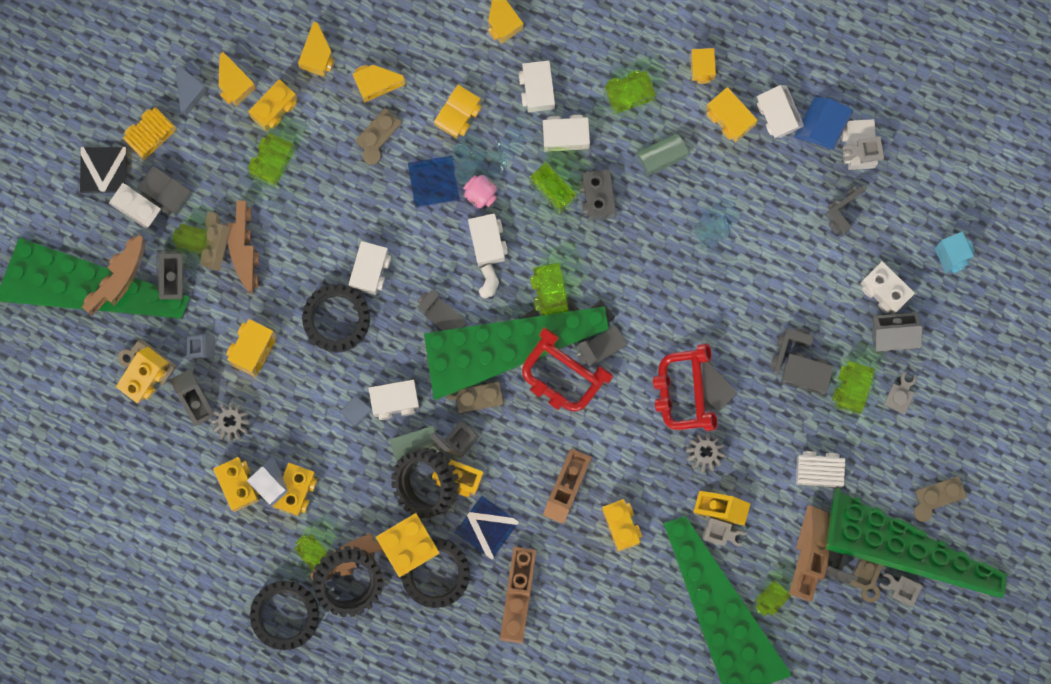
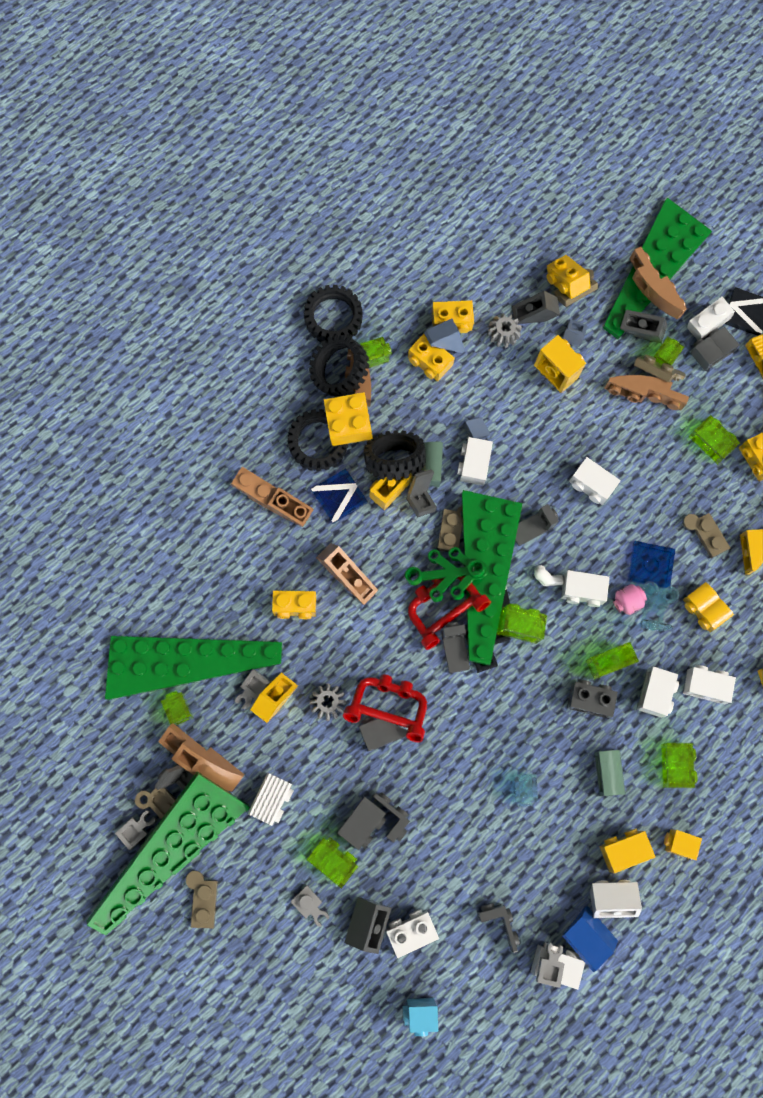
camera: 105 degrees right, 5 degrees down
(332, 291) = (566, 419): black tyre -> none
(529, 379) = (449, 573): none -> green plant

